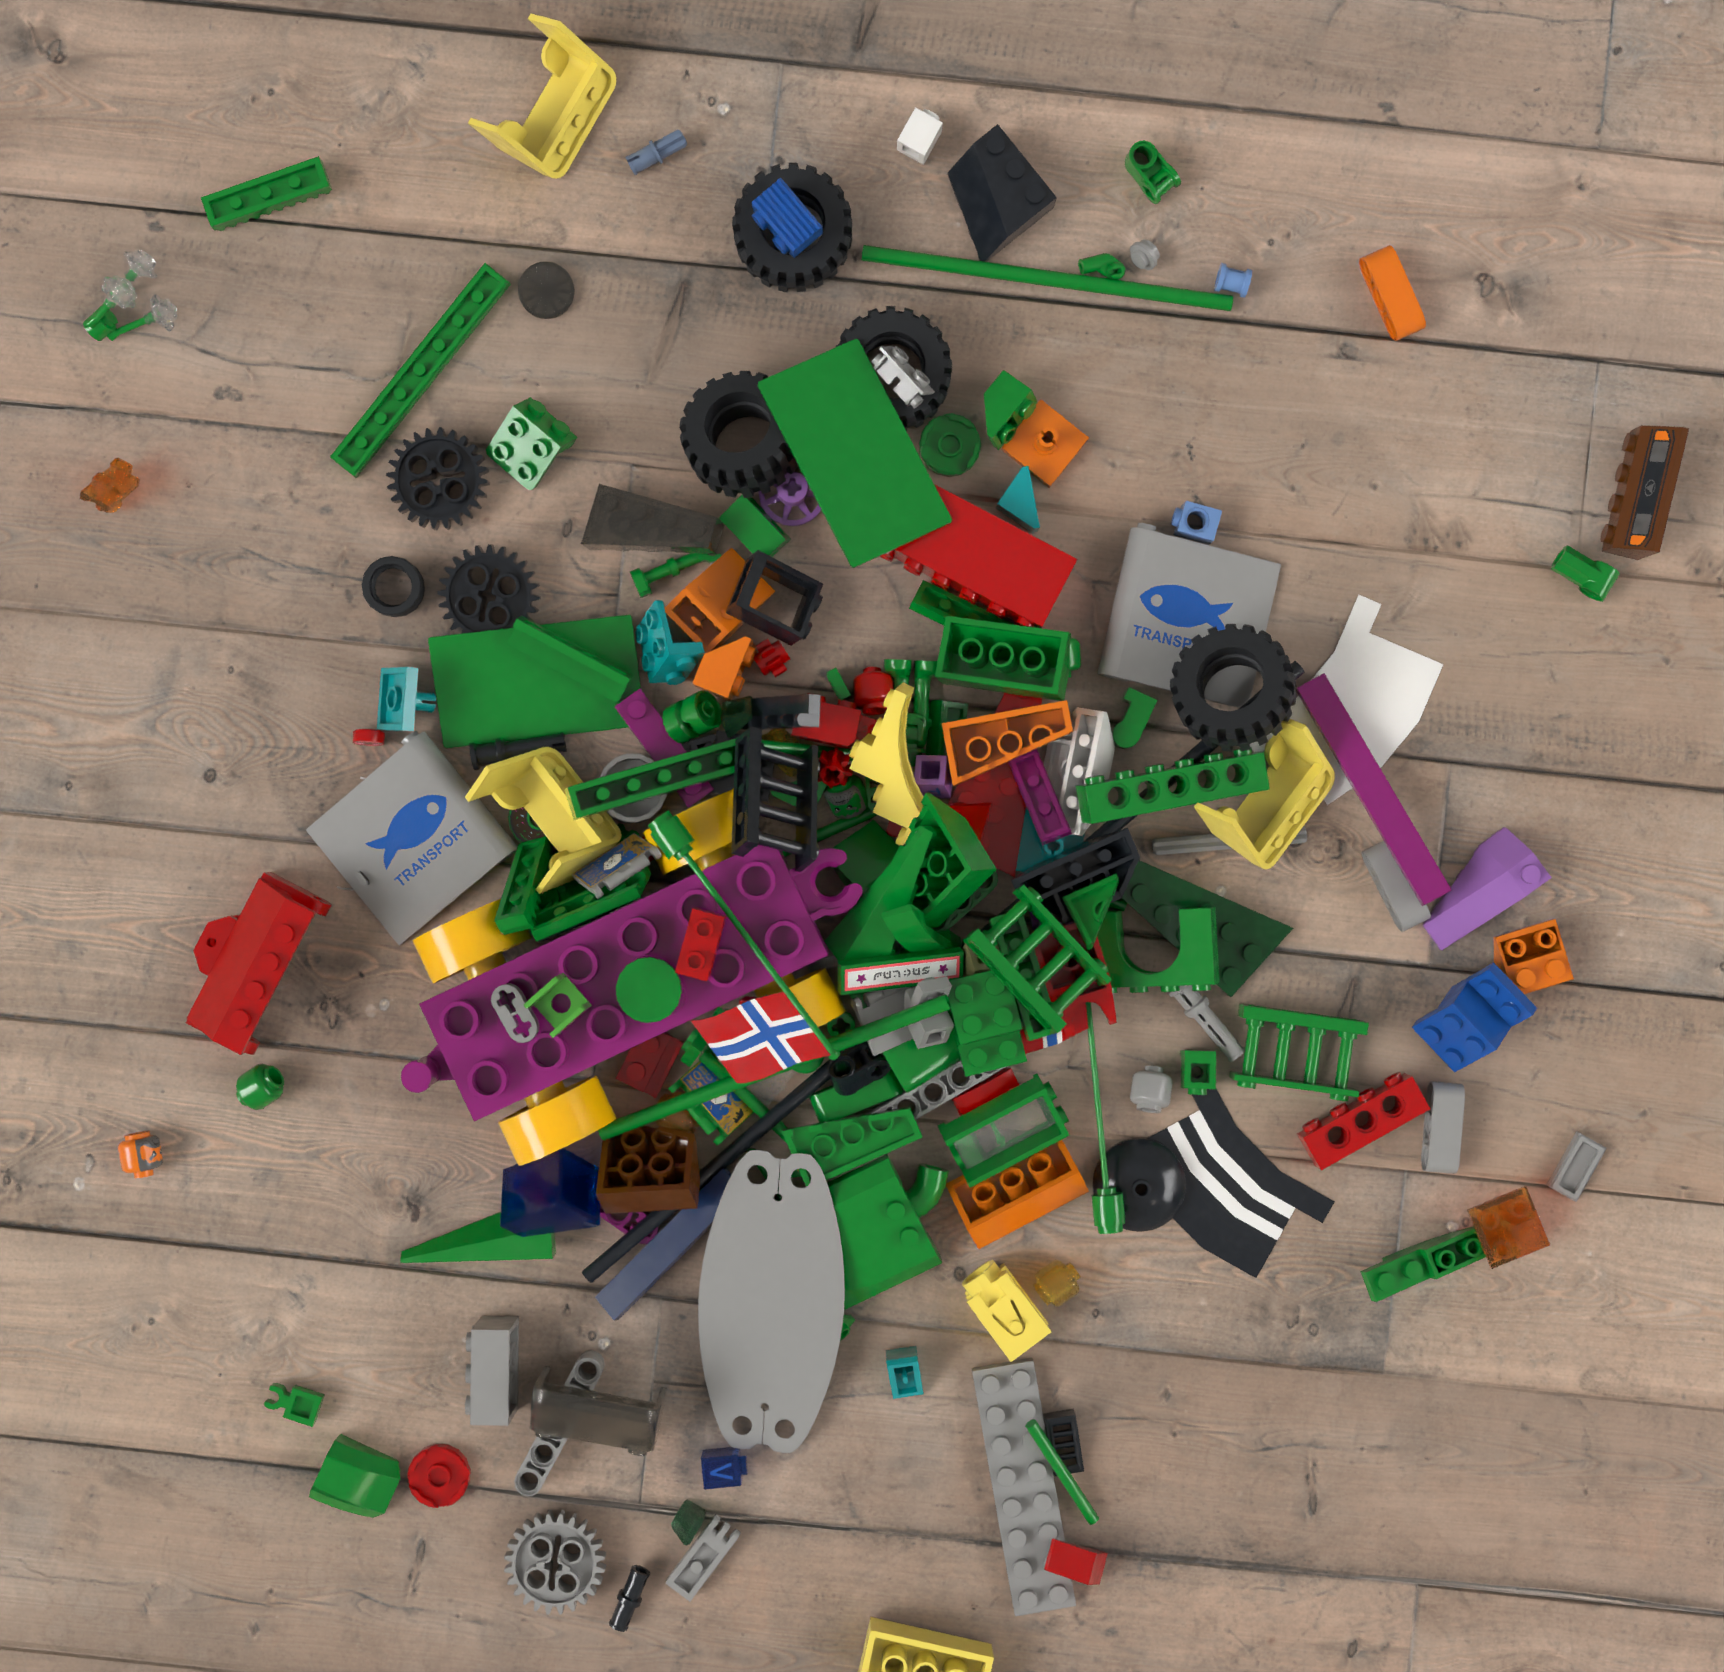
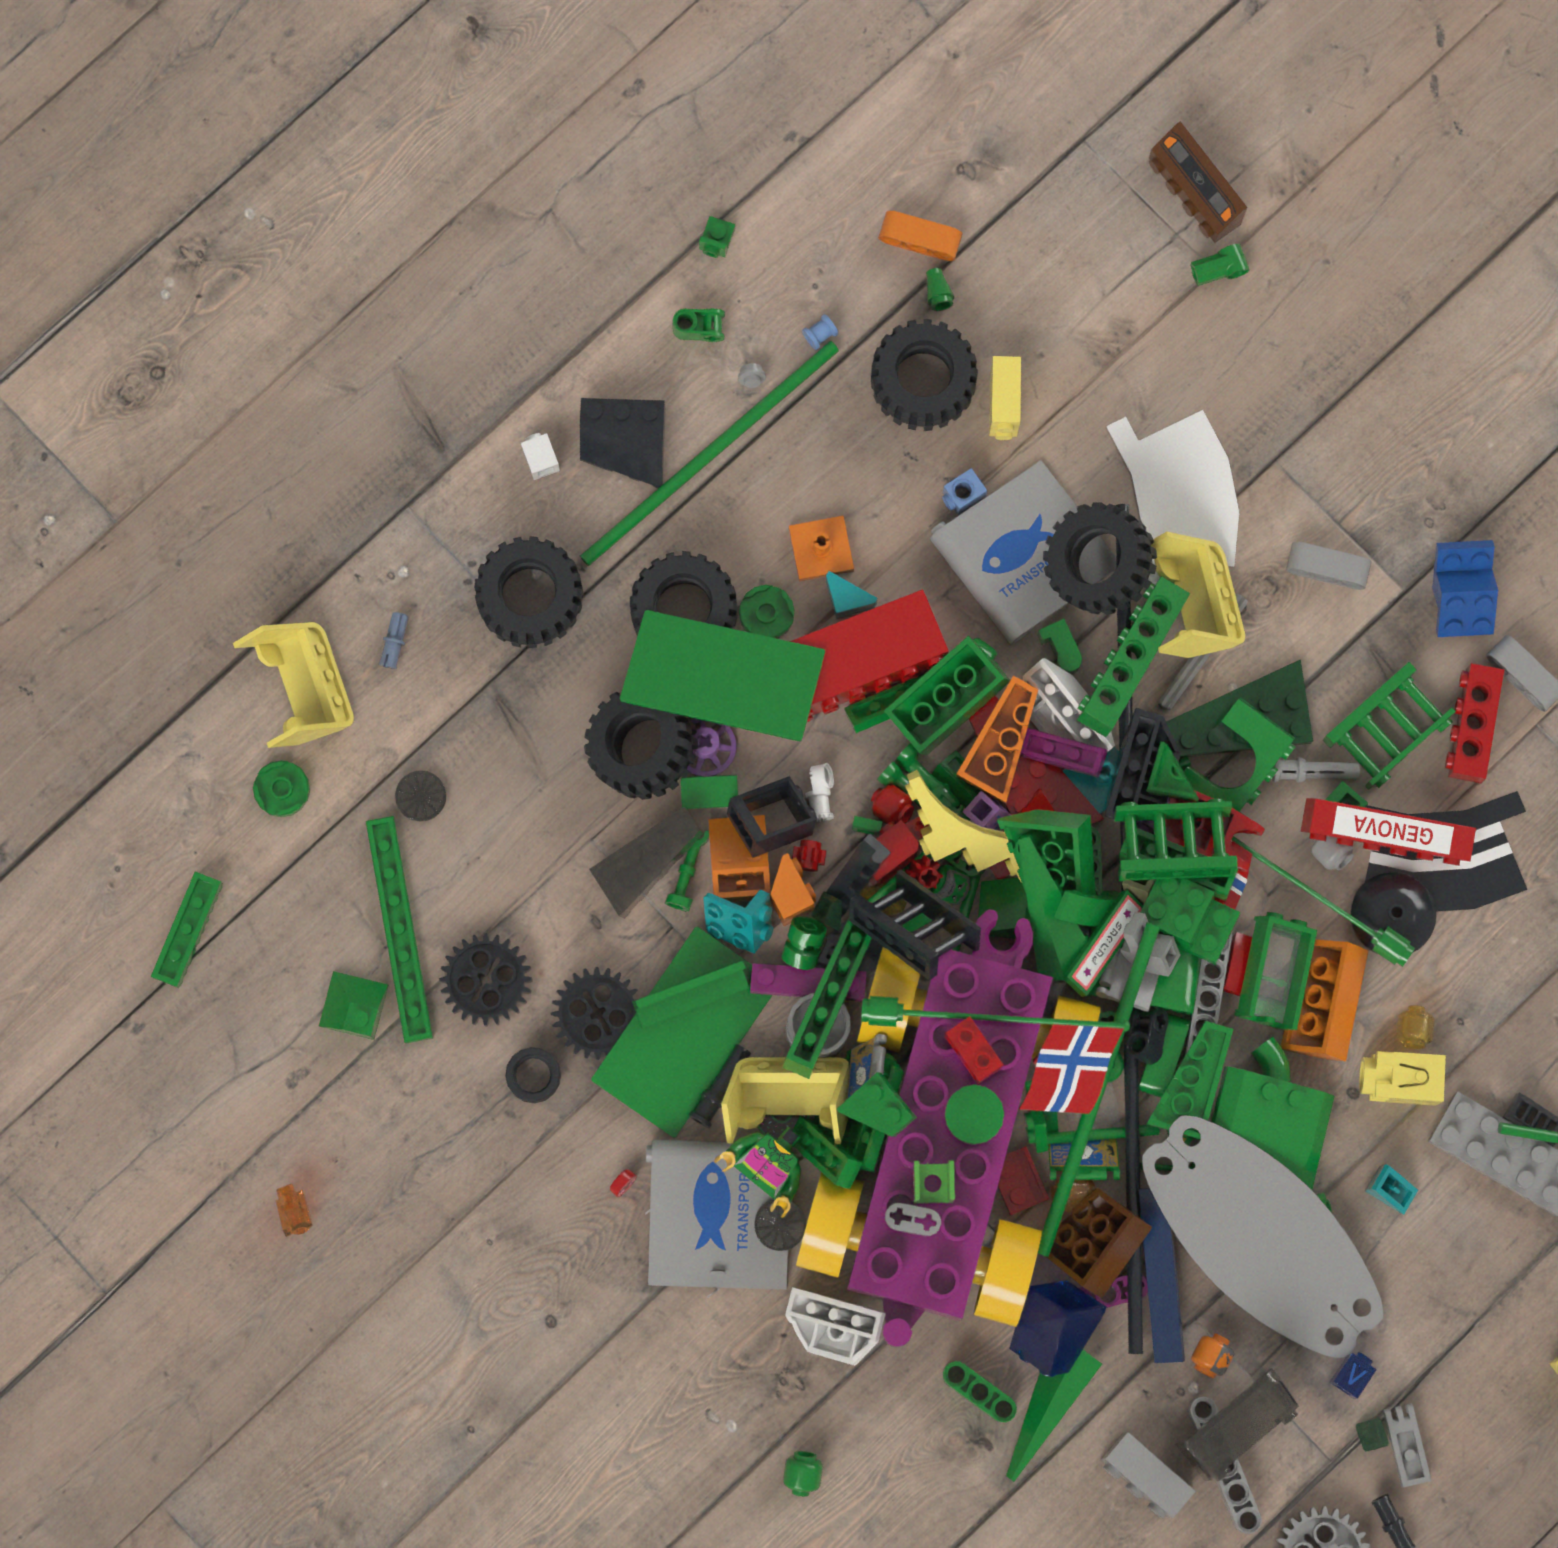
camera: 45 degrees left, 10 degrees down
(122, 293) = (173, 1082): clear plant -> none
(248, 958) = (712, 1398): red piece -> none
(324, 389) = (353, 1005): none -> green slope
(393, 1014) = (834, 1325): none -> white wedge
(400, 699) = (616, 1135): teal tile -> none
(440, 1187) = (993, 1396): none -> green beam
(442, 896) = (780, 1232): none -> clear smoke wheel
(452, 168) = (281, 788): none -> green tile
(478, 845) = (767, 1164): none -> torso
(529, 442) = (516, 896): bracket -> none
(589, 902) = (878, 1106): none -> green wing
(640, 1340) = (1212, 1355): none -> orange head
(786, 218) = (525, 588): blue brick -> none
(842, 615) = (821, 781): none -> white connector
(895, 365) = (708, 598): light grey hinge -> none
(1005, 408) = (774, 550): green slope -> none
(1103, 264) = (734, 407): green arm -> none
(1205, 1126) = (1388, 830): none -> red brick
(1241, 120) = (716, 237): none -> green bracket
(1294, 367) = (930, 340): none -> black tyre
(1309, 486) = (1005, 397): none -> light yellow brick
(1355, 352) = (938, 291): none -> green cone
(1373, 789) = (1249, 525): magenta tile -> none
(1491, 882) = (1380, 501): medium lavender wedge -> none
(1533, 956) = (1455, 514): orange slope -> none

